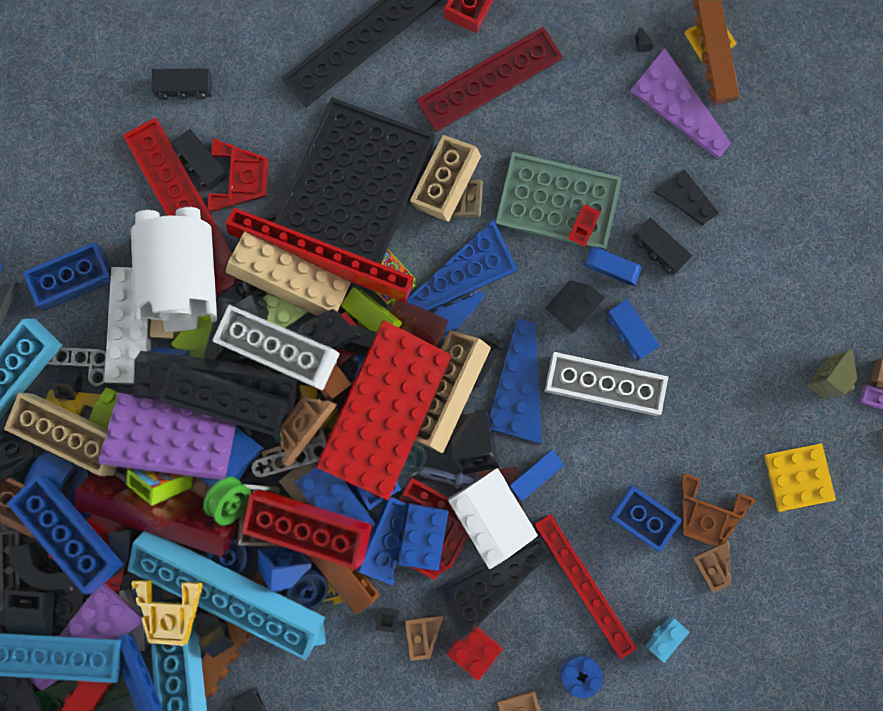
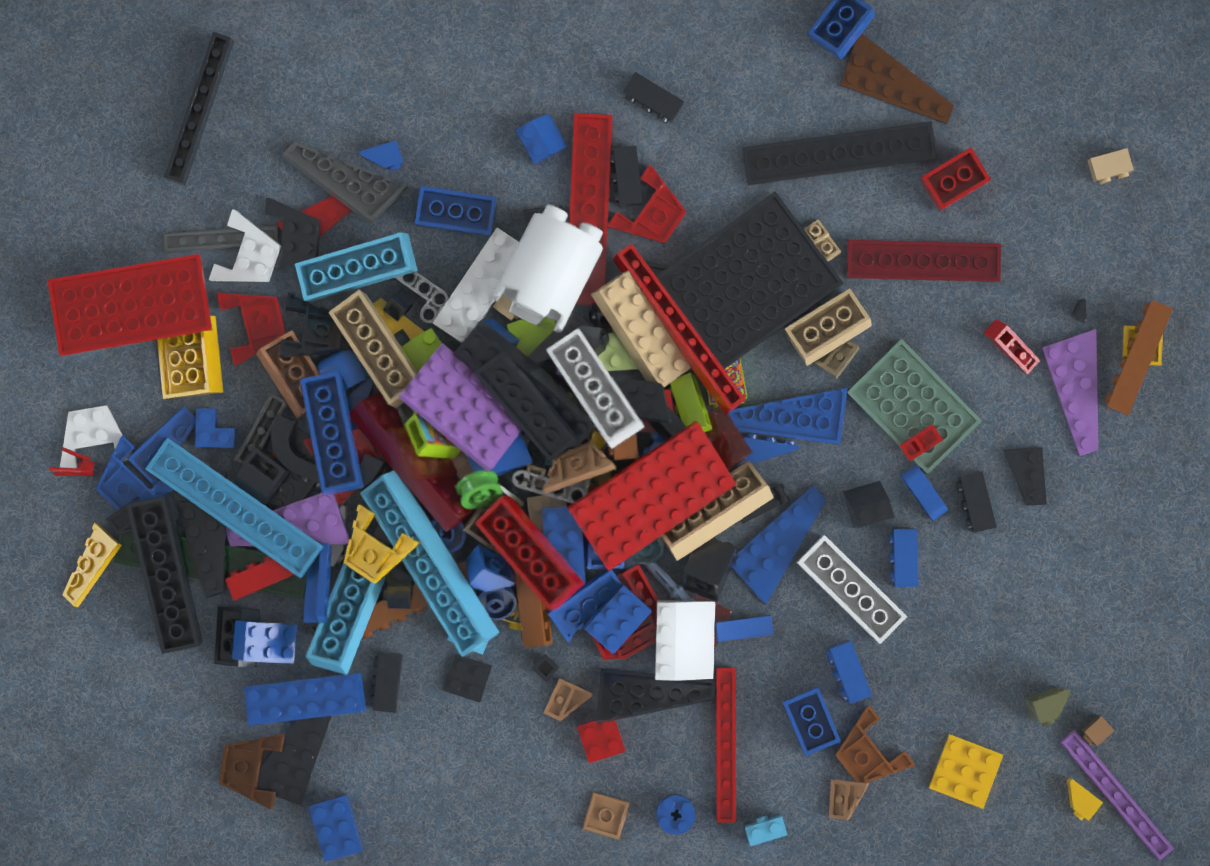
camera: 30 degrees right, 5 degrees up
(107, 173) = (541, 138): none -> blue slope
(326, 672) = (467, 678): none -> black plate
(397, 113) = (822, 240): none -> tan slope
(605, 102) = (1011, 346): none -> red slope
(649, 455) = (848, 672): none -> blue brick

